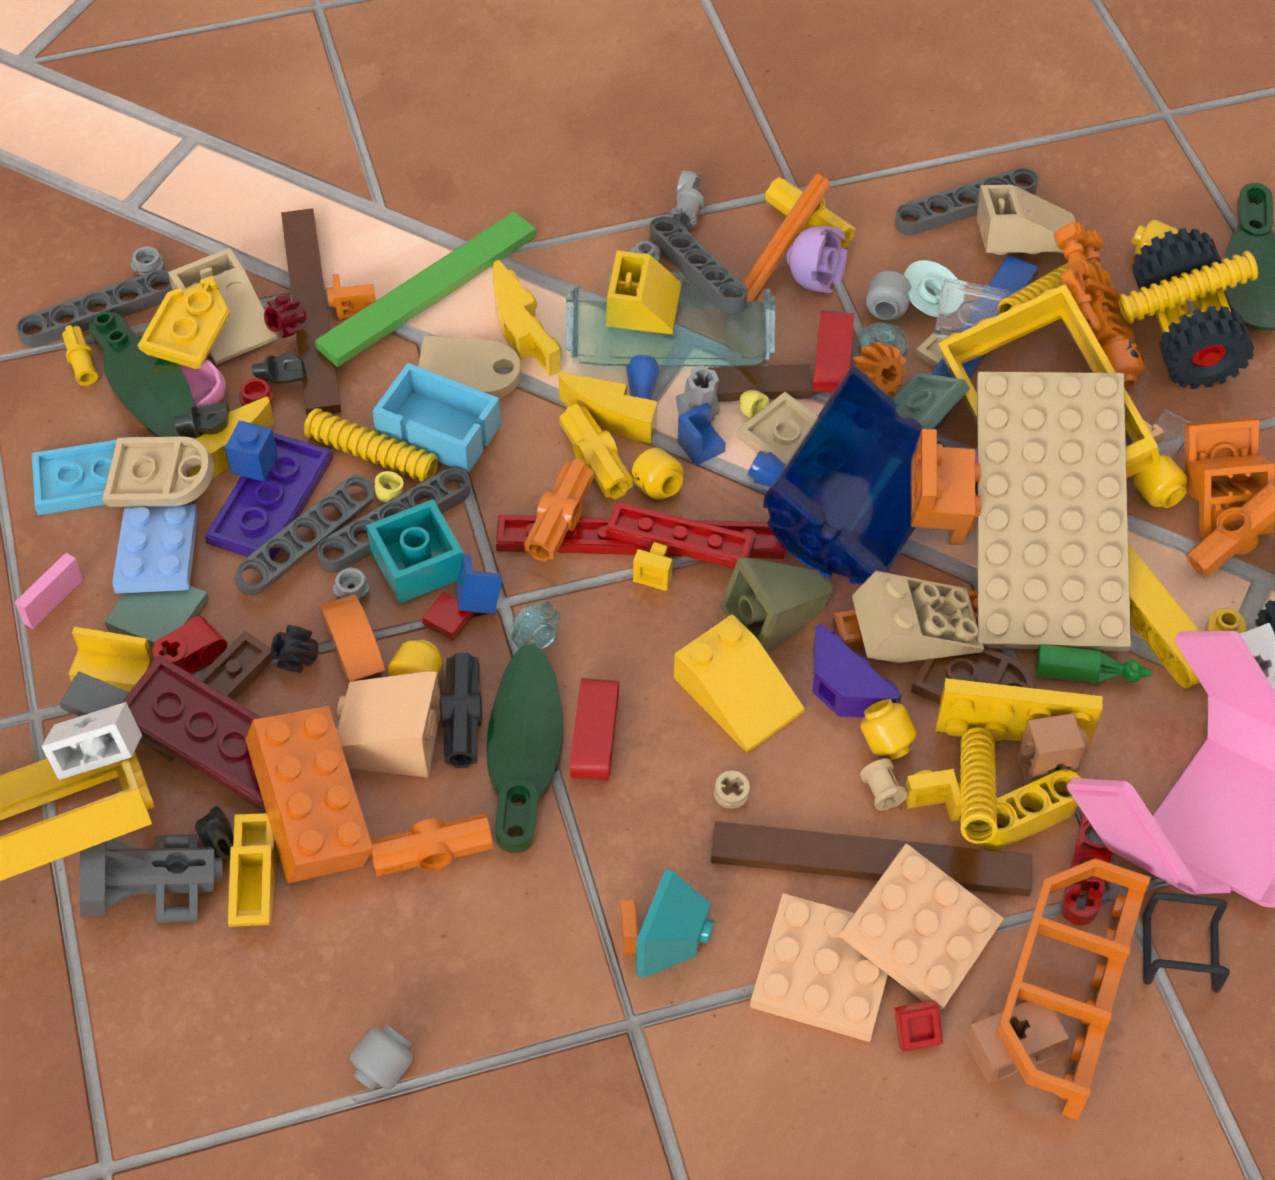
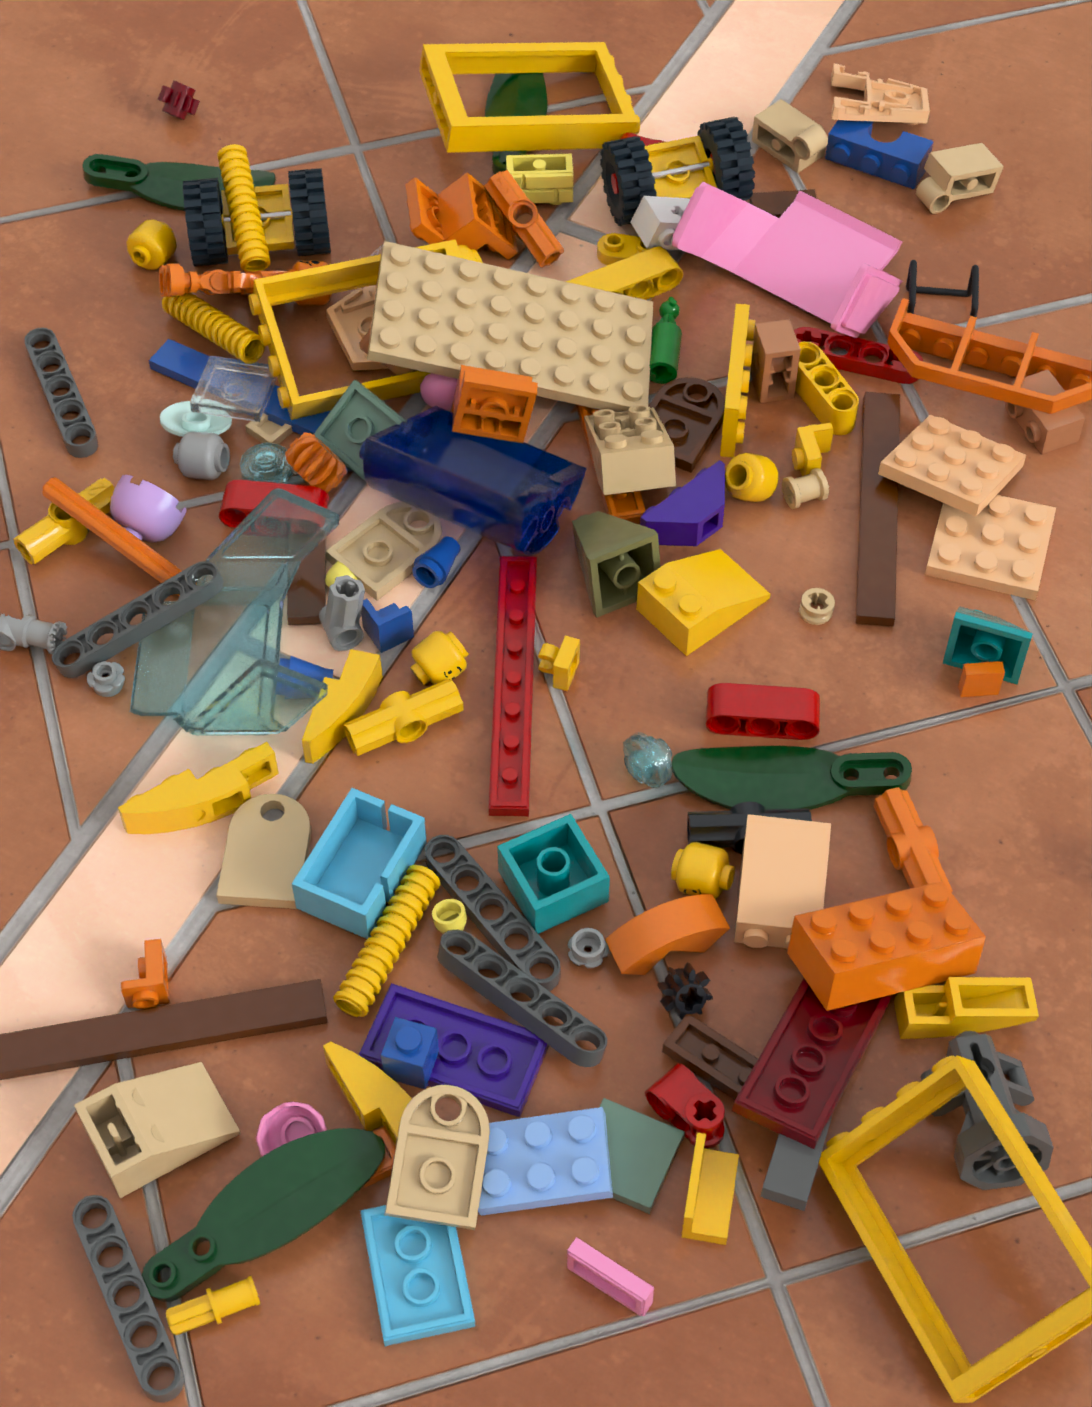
camera: 90 degrees left, 0 degrees up
(92, 741) = (878, 1168): white brick -> none
(146, 260) = (45, 1230): light grey plate -> none
(186, 324) = (208, 1139): yellow tile -> none
(202, 421) = (364, 1108): pearl dark grey piece -> none
(216, 832) = (917, 1052): pearl dark grey piece -> none
(254, 390) = (298, 1077): red plate -> none
(283, 369) = (265, 1043): pearl dark grey piece -> none
(285, 315) = (187, 1038): dark red gear -> none
(424, 289) = (142, 898): bright green tile -> none
(445, 617) = (623, 852): red tile -> none
(477, 589) = (602, 818): blue panel -> none
(559, 510) = (497, 739): orange piece -> none
(642, 294) = (187, 669): yellow slope -> none
(681, 535) = (523, 639): red tile -> none
(918, 1025) = (1043, 474): red tile -> none
(978, 786) = (817, 406): yellow piece -> none
(1018, 220) = (114, 341): tan slope -> none

